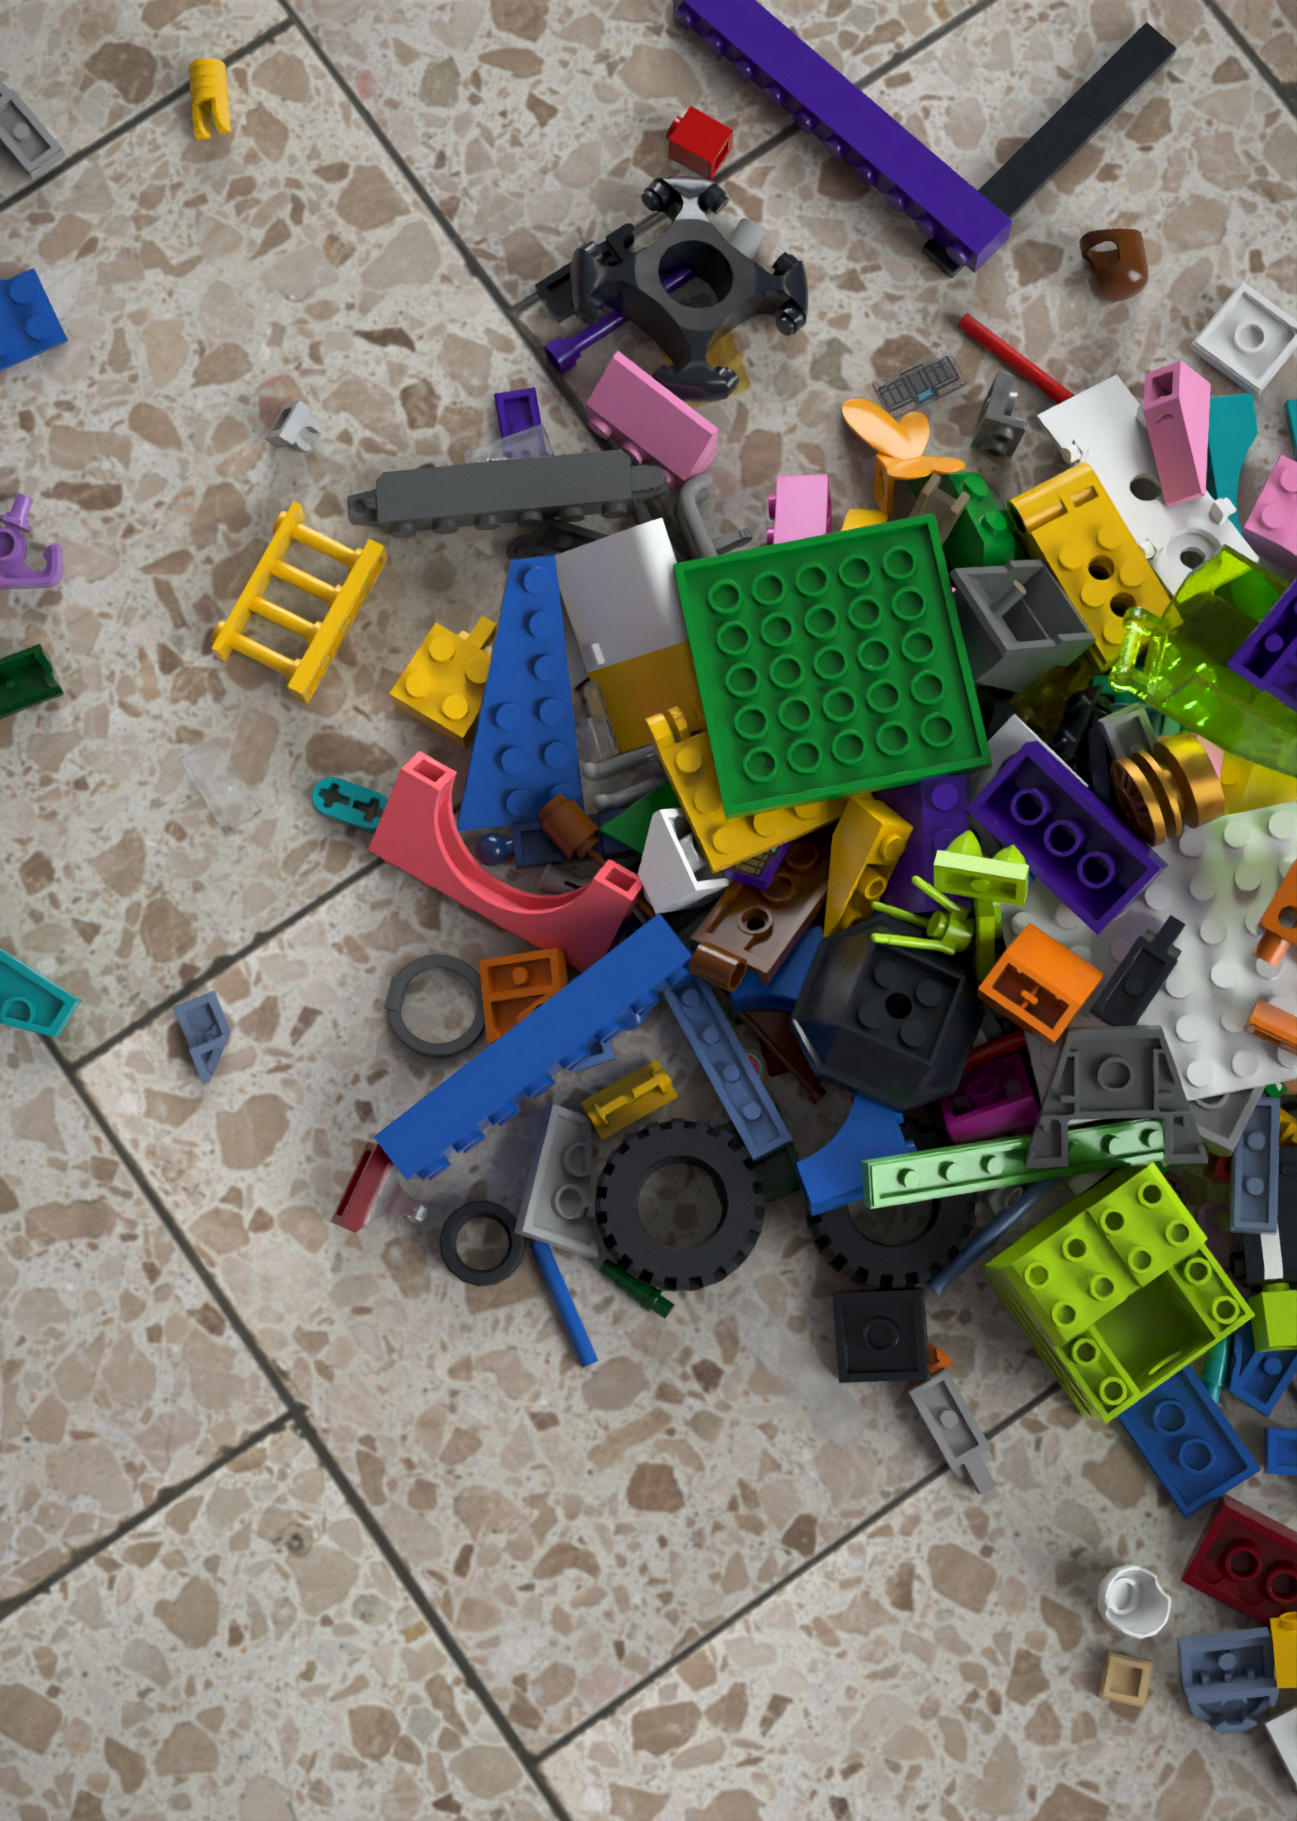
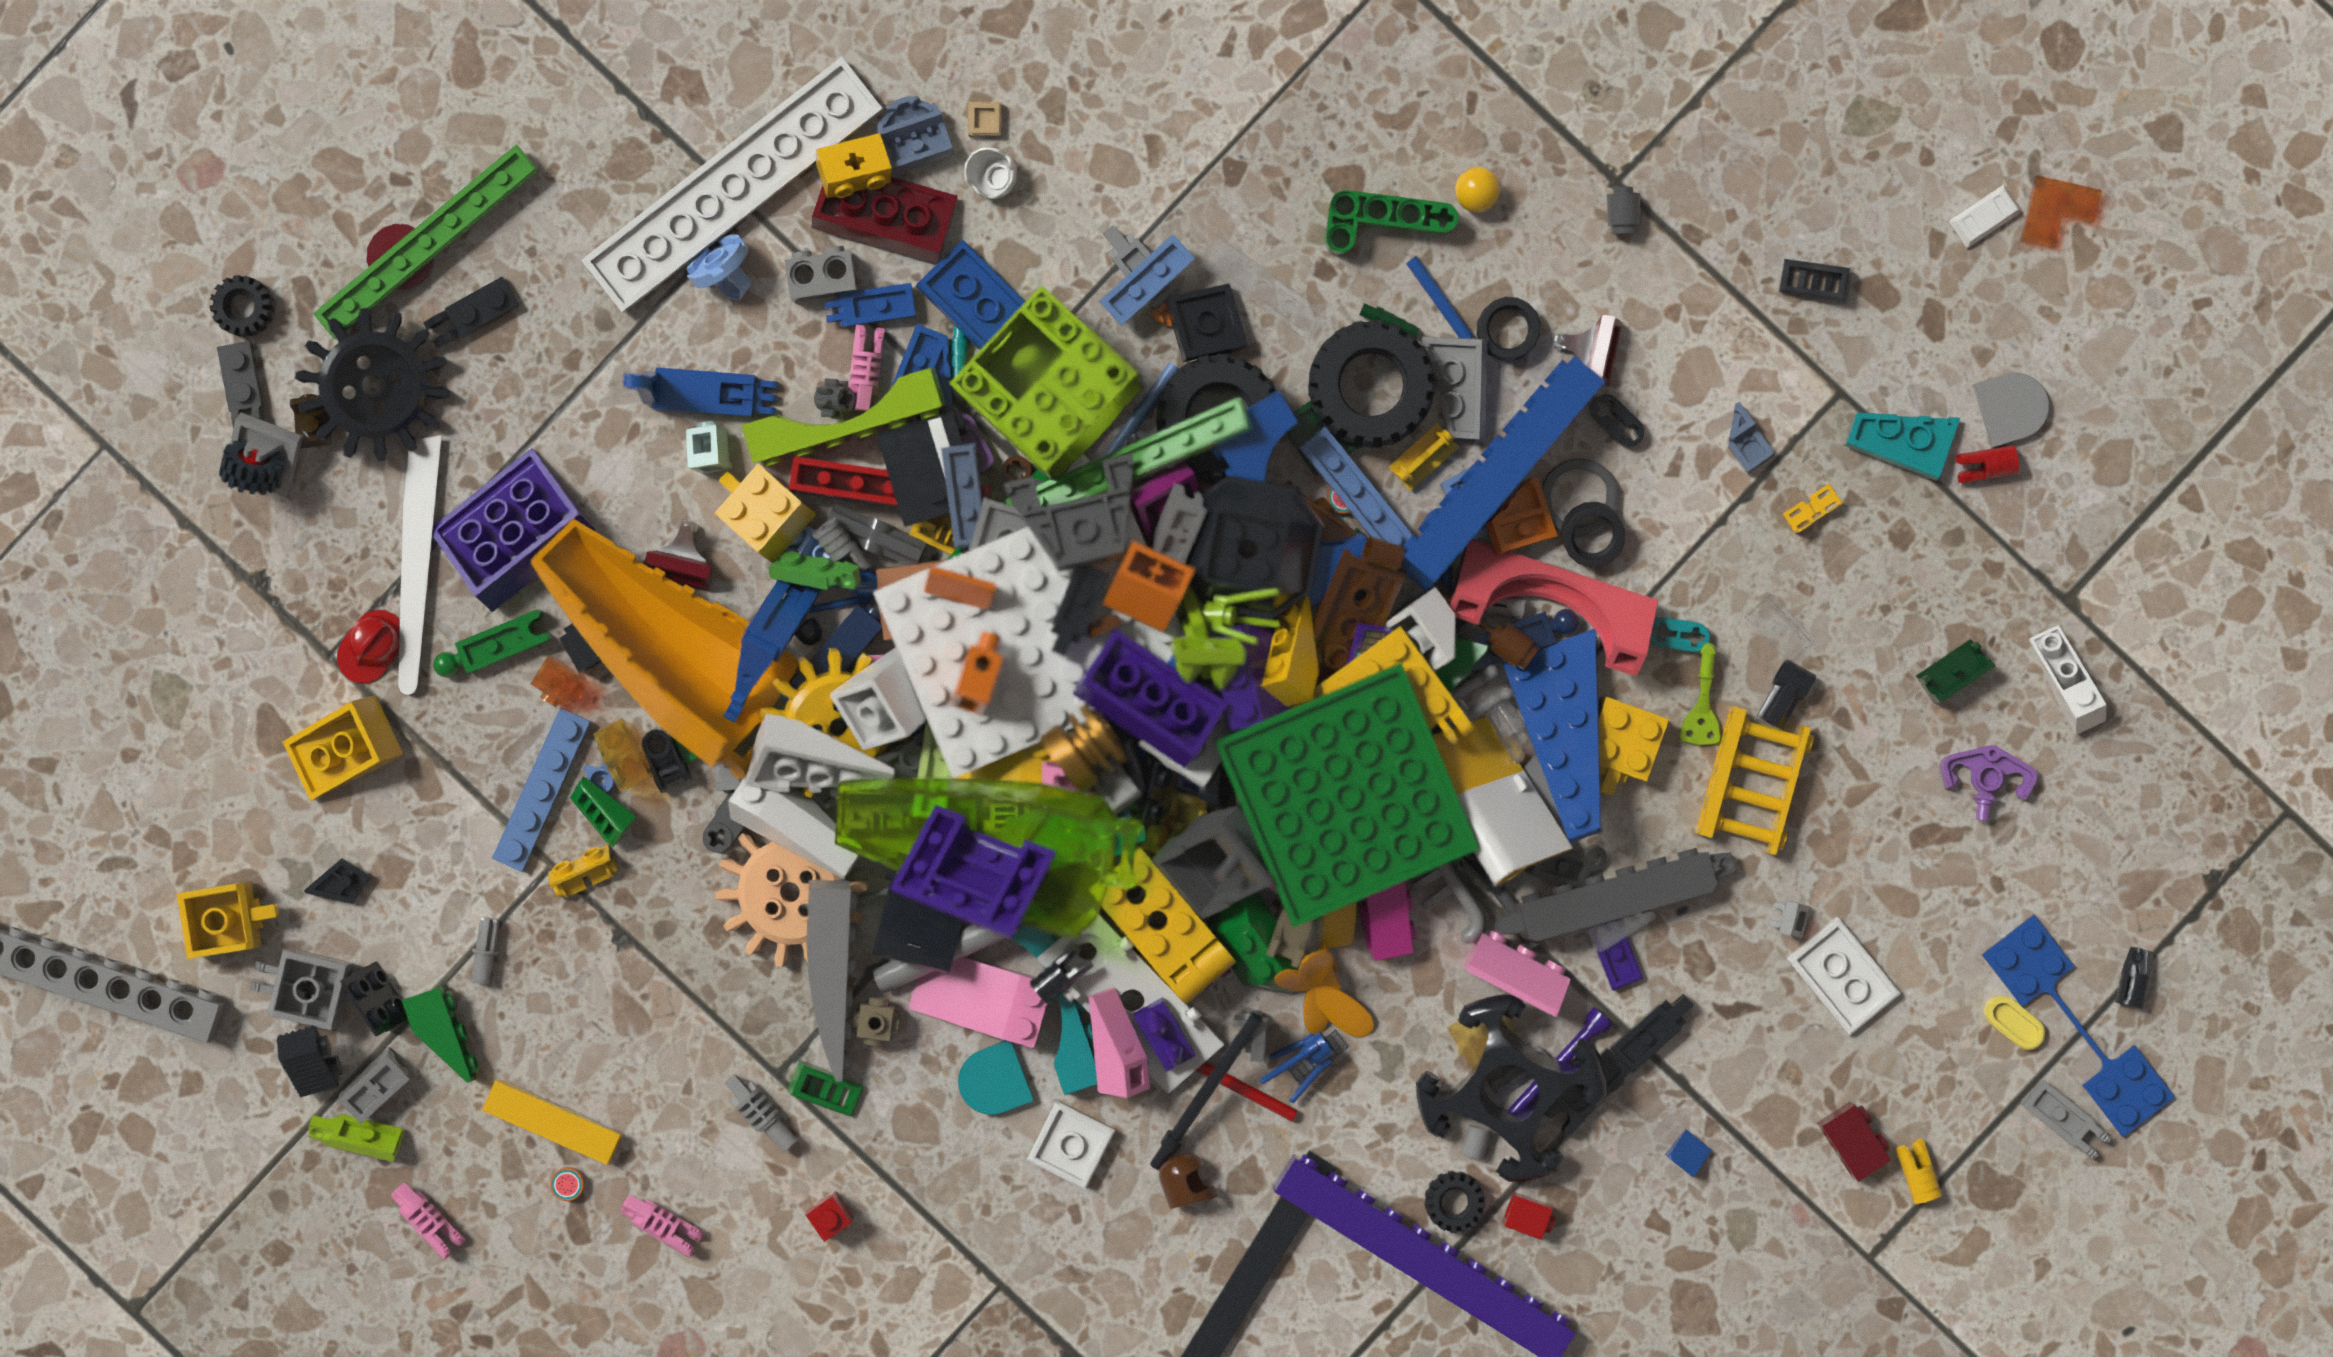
camera: 170 degrees right, 10 degrees up
(29, 1210) = (1844, 282): none -> black slope
(48, 252) = (2014, 1022): none -> light yellow tile
(149, 927) = (1817, 505): none -> yellow piece
(225, 710) = (1789, 687): none -> black piece
(245, 349) = (1843, 976): none -> white tile
(279, 148) = (1854, 1140): none -> dark red brick
(294, 1368) = (1623, 210): none -> dark grey brick
(342, 707) = (1702, 707): none -> lime piece
(358, 1099) = (1622, 415): none -> black beam
(425, 921) = (1603, 557): none -> black tyre
(483, 1437) = (1477, 189): none -> yellow piece
(486, 178) = (1688, 1153): none -> blue slope
(497, 327) = (1651, 1032): none -> black hinge
(606, 1421) = (1391, 221): none -> green beam
(786, 155) = (1466, 1218): none -> black tyre
(922, 385) = (1313, 1049): none -> blue plant
(951, 1407) = (1147, 280): none -> medium blue plate
(982, 1059) = (1178, 524): none -> light grey hinge
(1103, 946) = (1103, 625): none -> reddish brown tile
(1112, 437) = (1164, 1034): none -> dark purple tile
(1118, 319) = (1174, 1138): none -> black bar
(1240, 525) = (1057, 978): none -> black hinge

